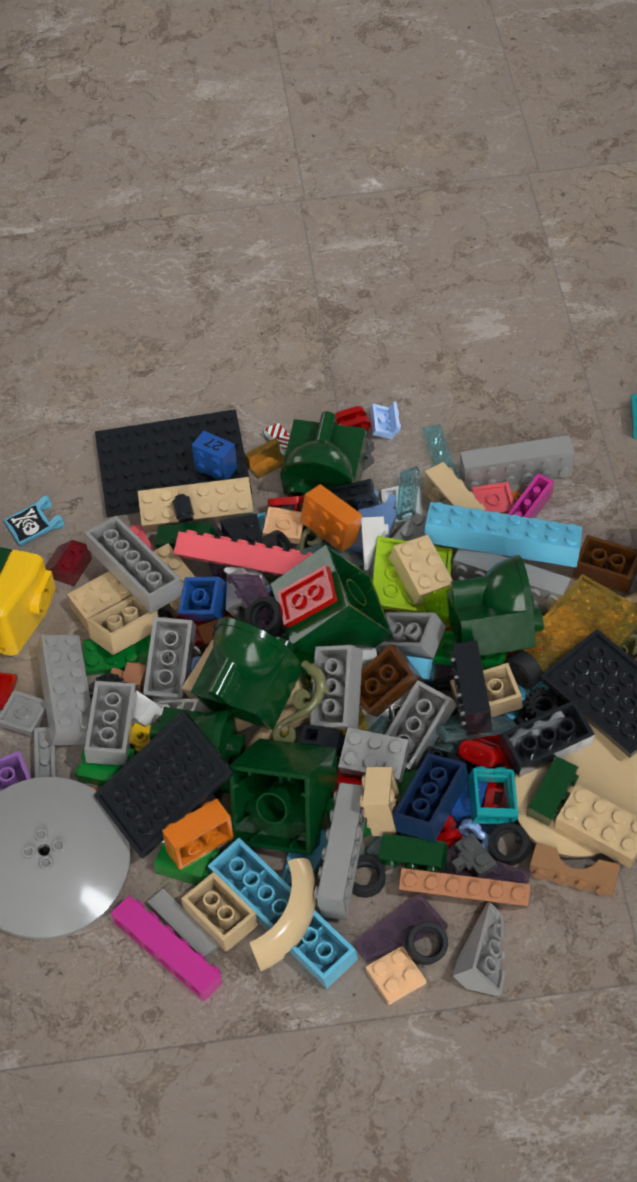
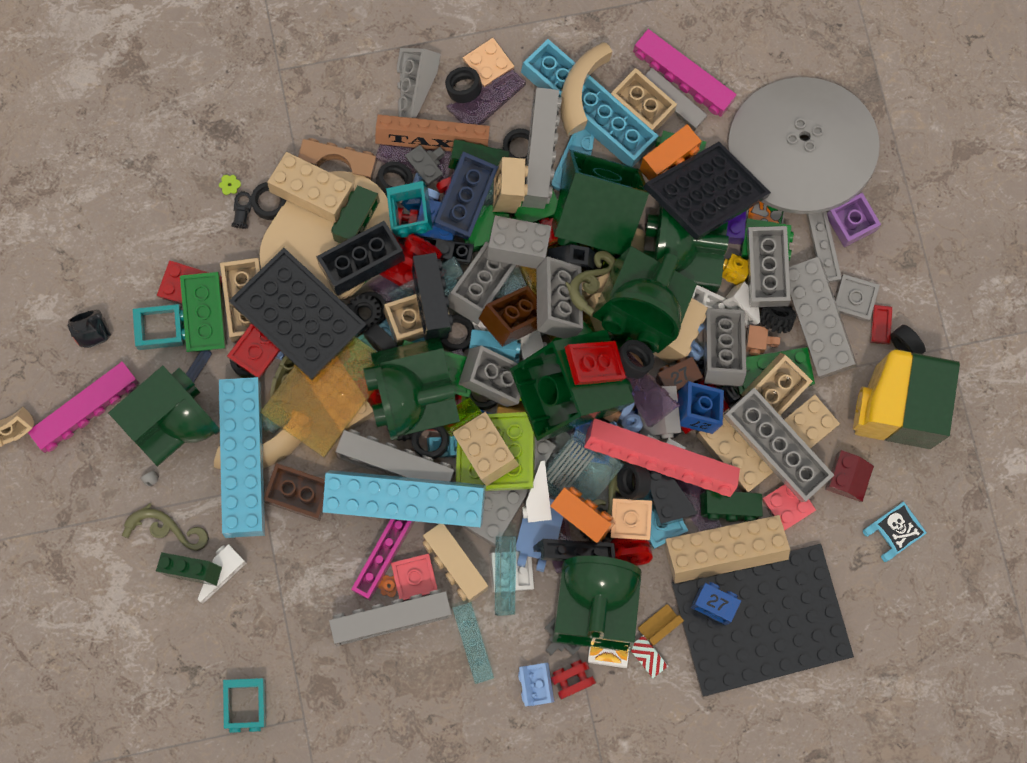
camera: 165 degrees right, 25 degrees up
(183, 508) = (738, 525): black brick -> none

